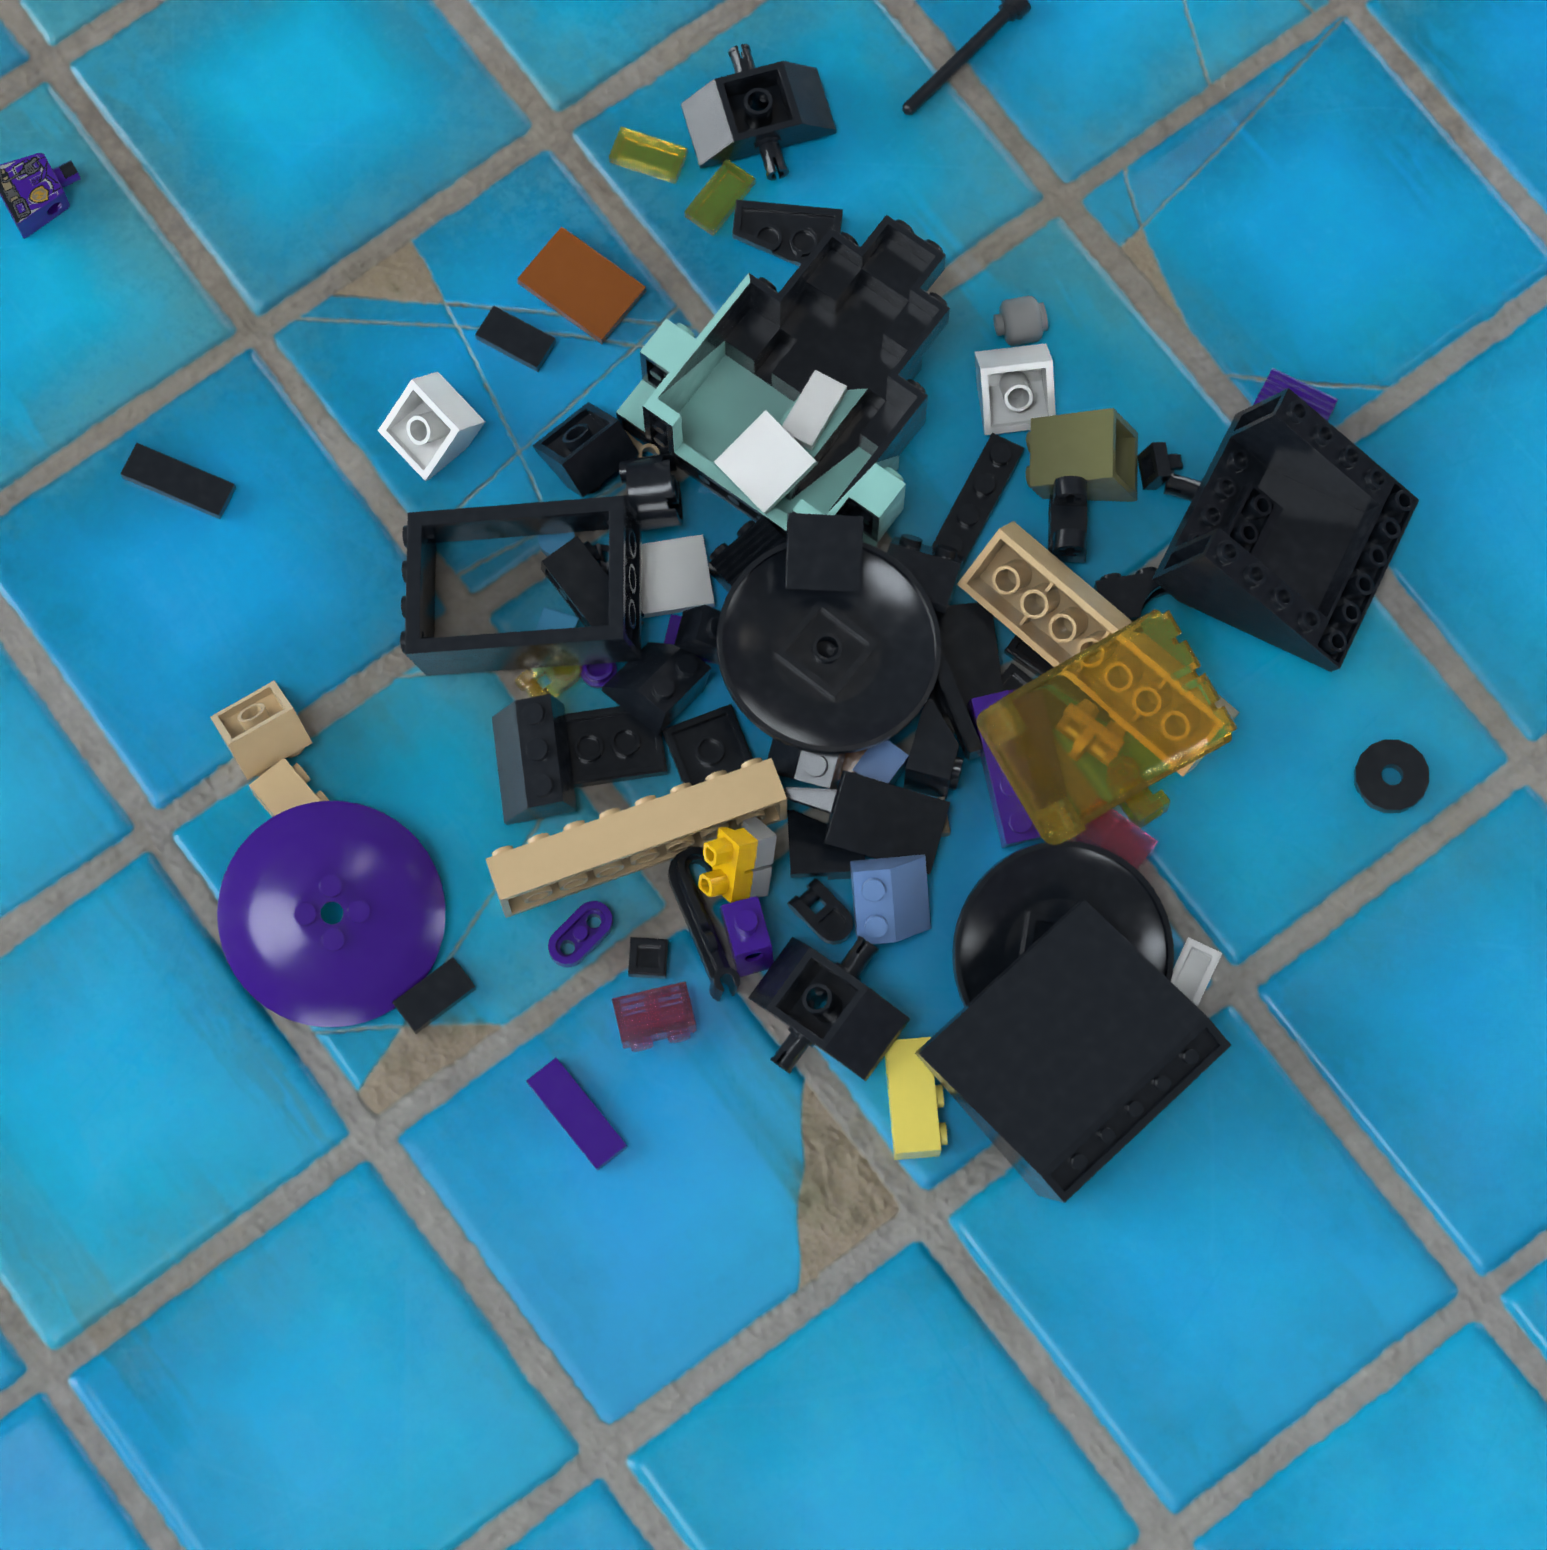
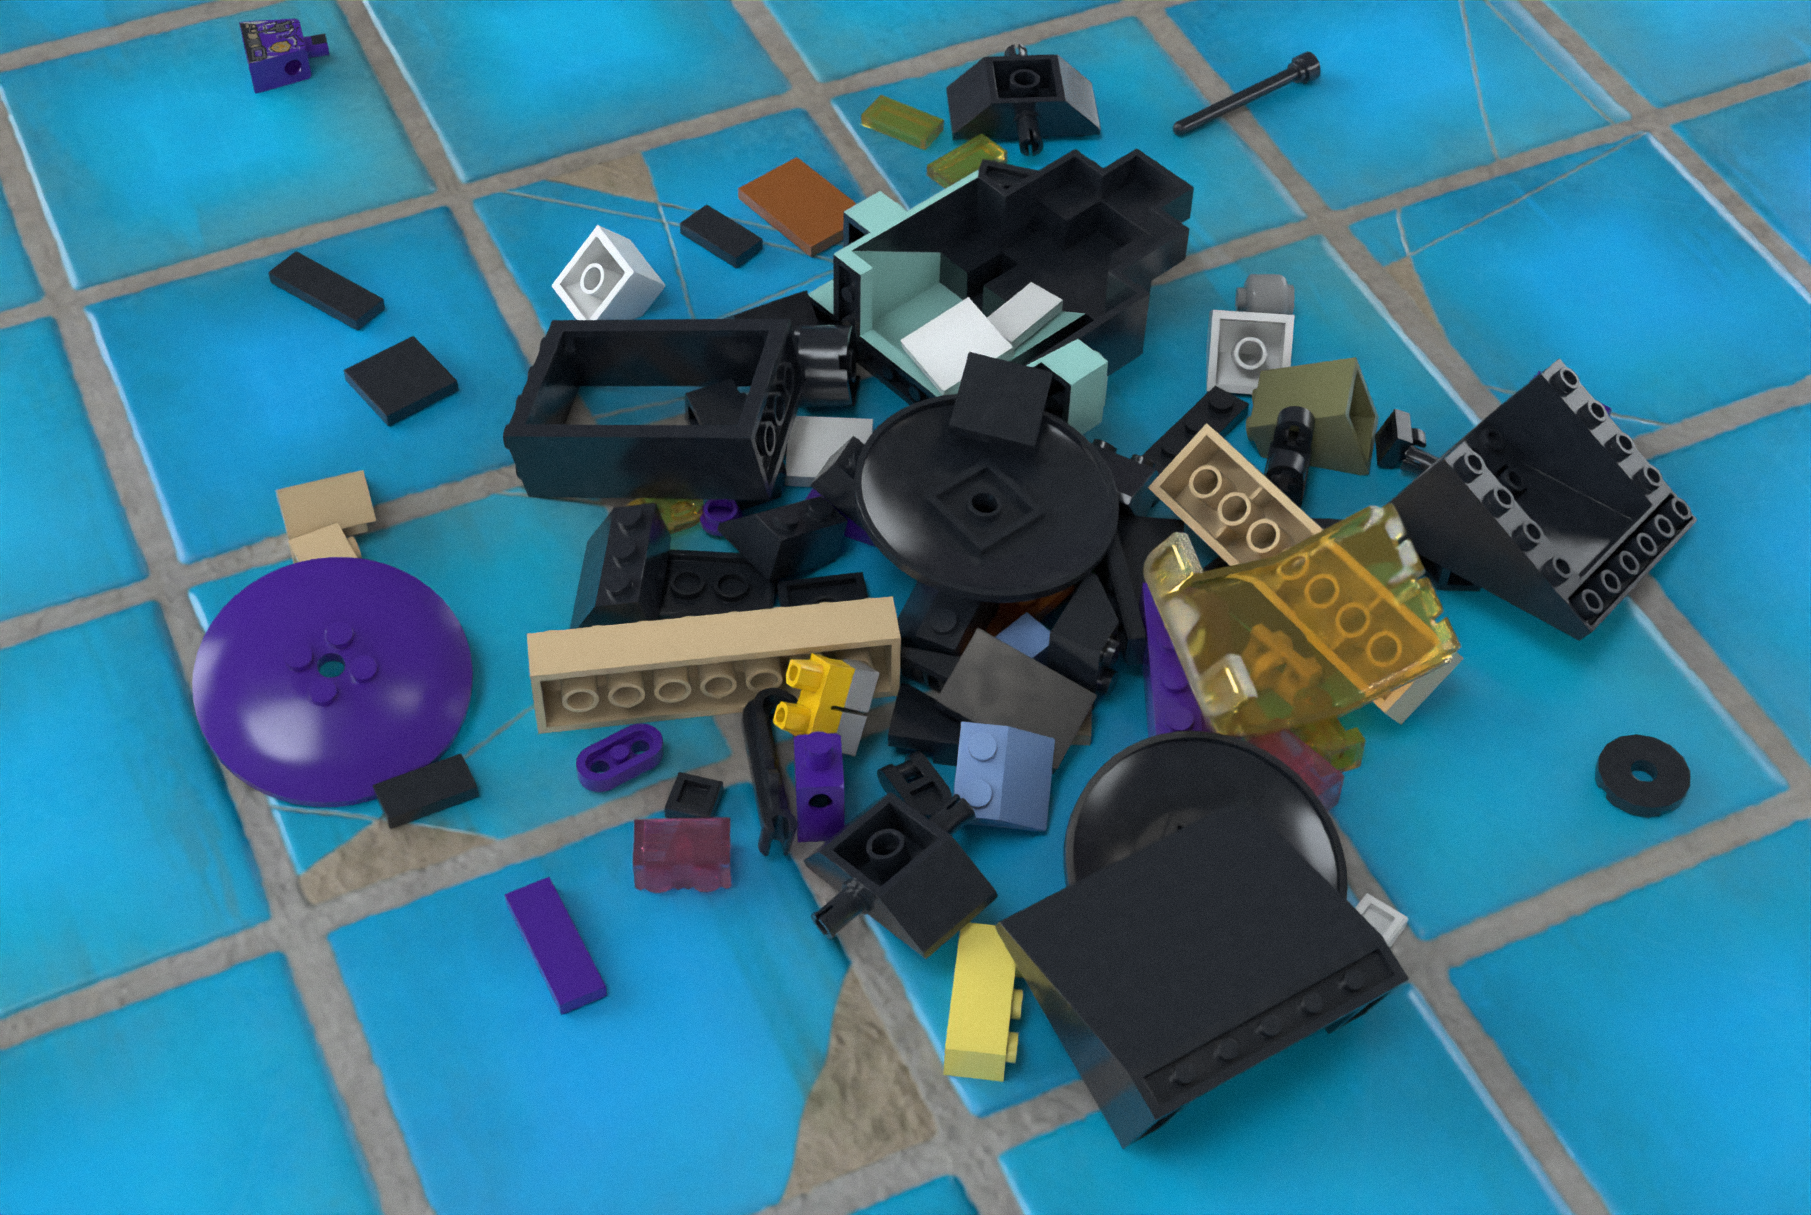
camera: 10 degrees right, 25 degrees down
(279, 573) = (401, 380): none -> black tile

